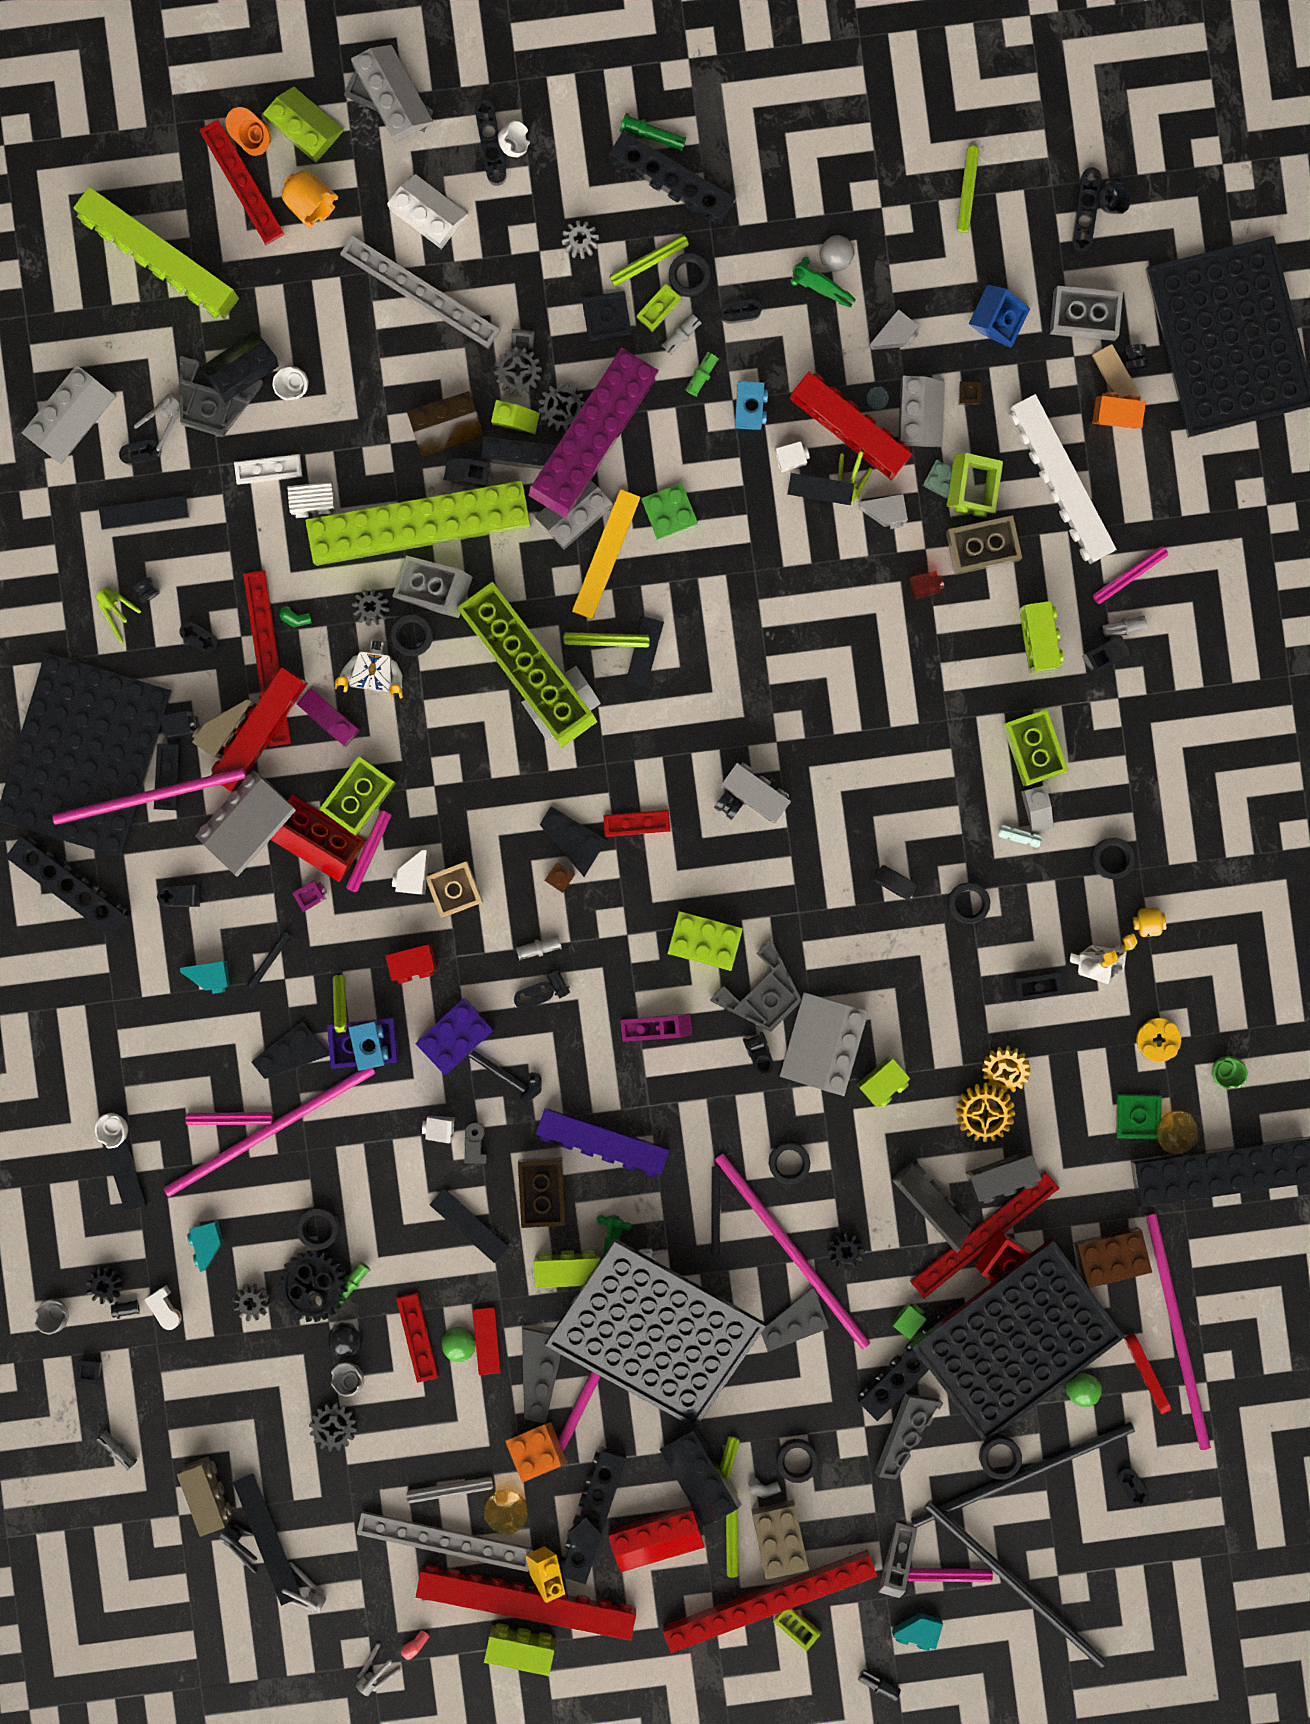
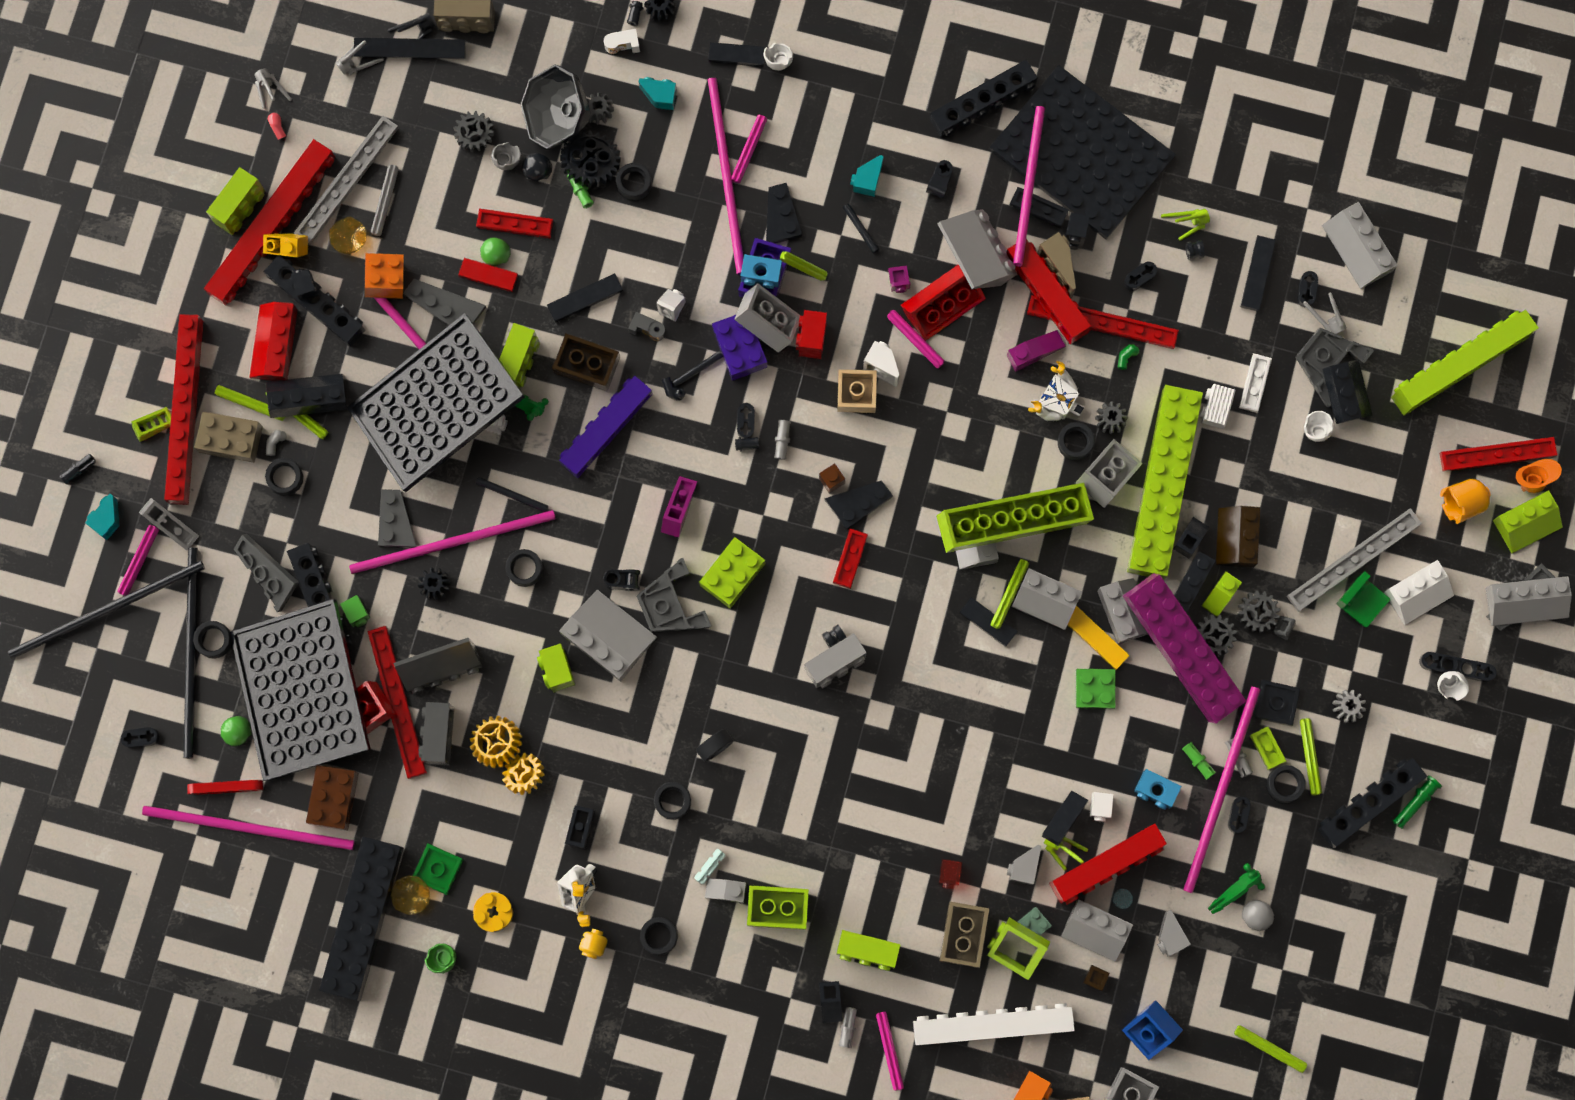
camera: 115 degrees right, 10 degrees down
(273, 1348) = (554, 107): none -> dark grey rock
(357, 796) = (963, 346): lime brick -> none
(415, 1017) = (767, 318): none -> light grey brick
(460, 266) = (1363, 600): none -> green bracket
(597, 598) = (1046, 599): none -> light grey slope
(723, 338) = (1221, 790): none -> dark pink piece

